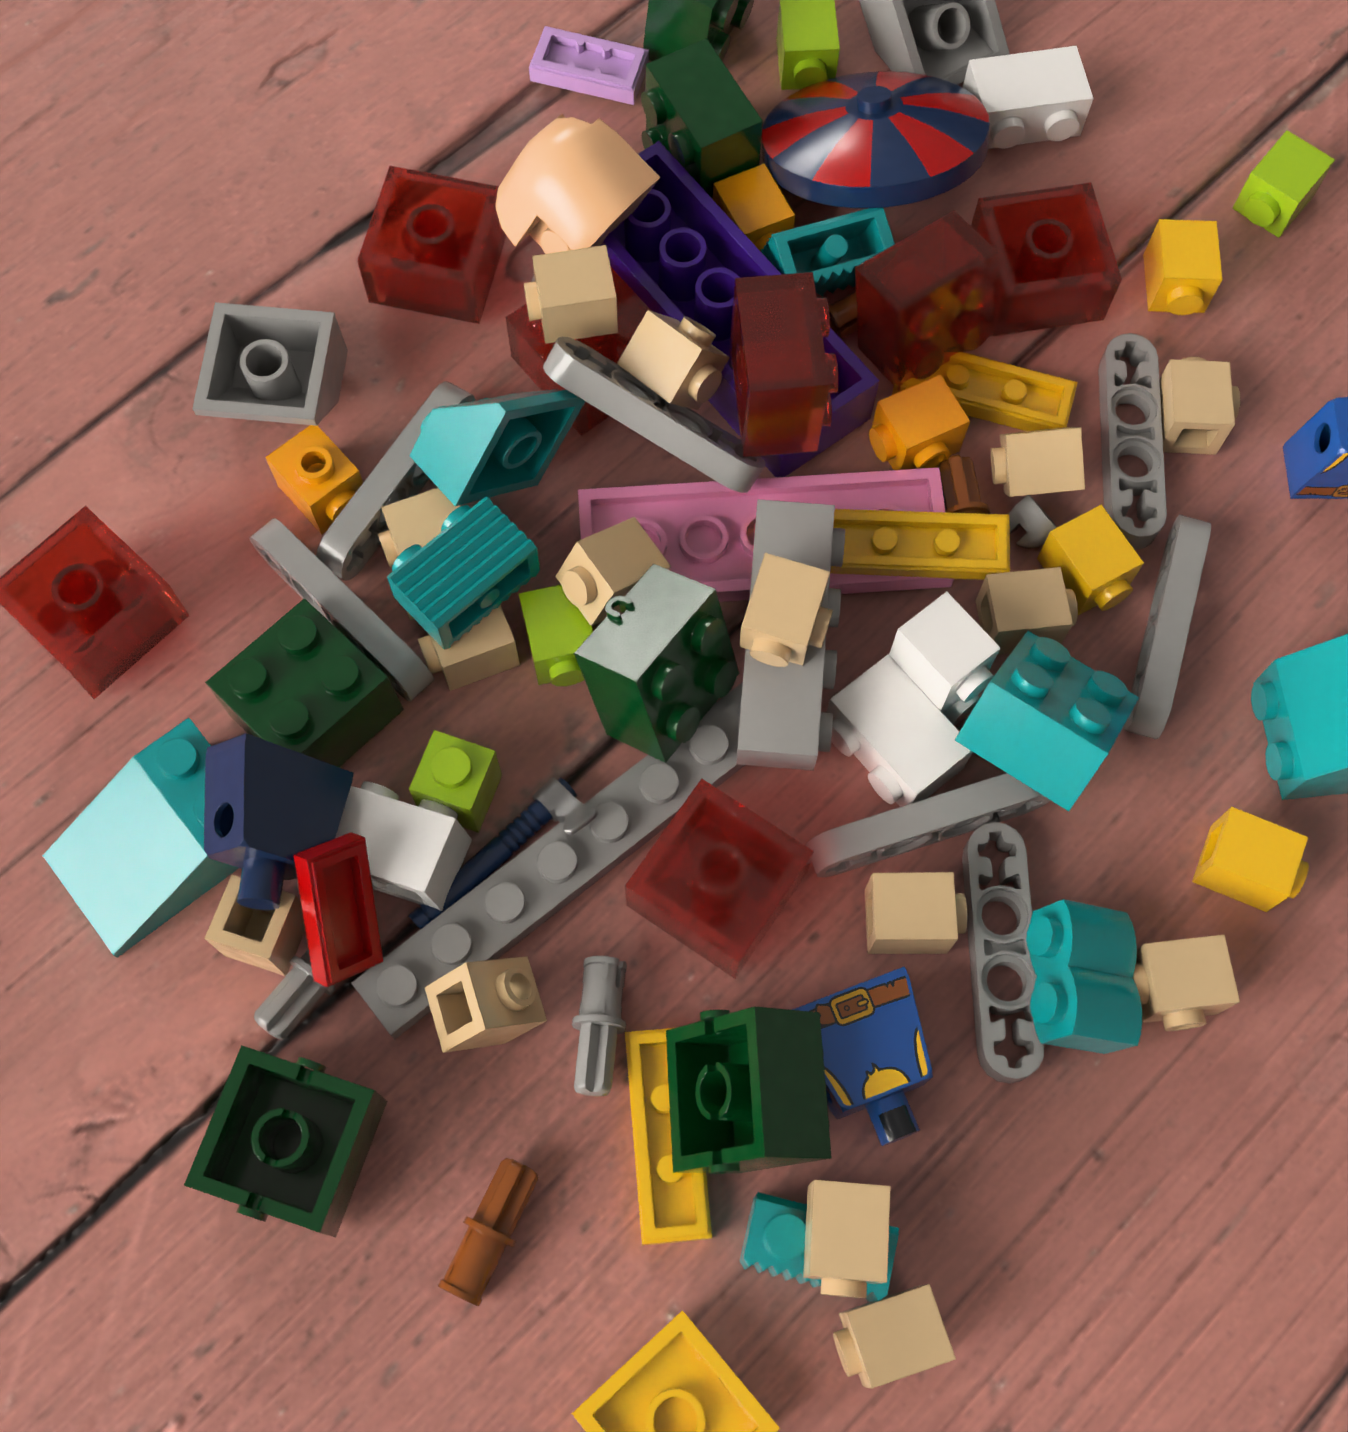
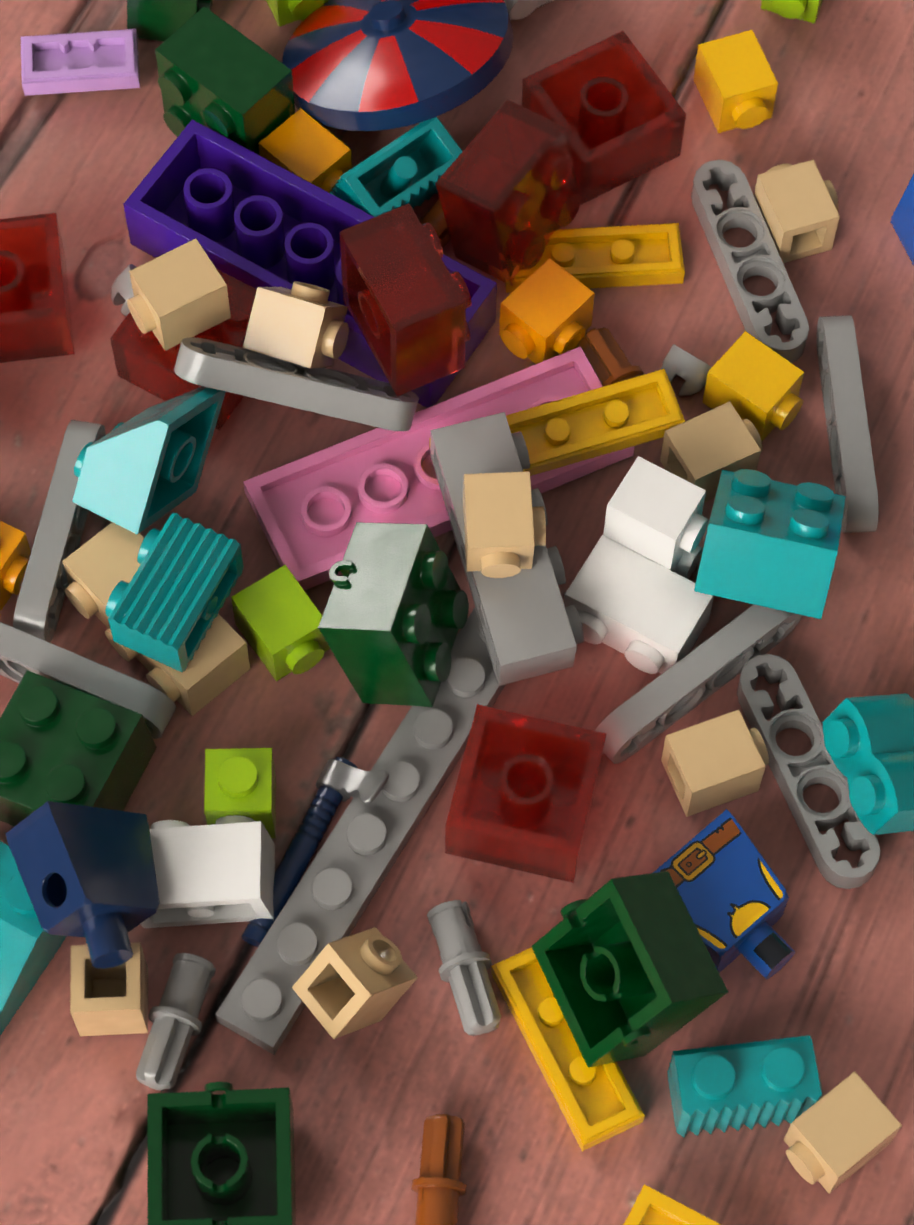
camera: 20 degrees left, 5 degrees down
(338, 908) = (185, 942): red tile -> none
(572, 186) = (130, 193): light nougat brick -> none
(607, 567) = (311, 542): tan brick -> none
(846, 1236) = (767, 1047): tan brick -> none
(1039, 461) = (672, 310): tan brick -> none

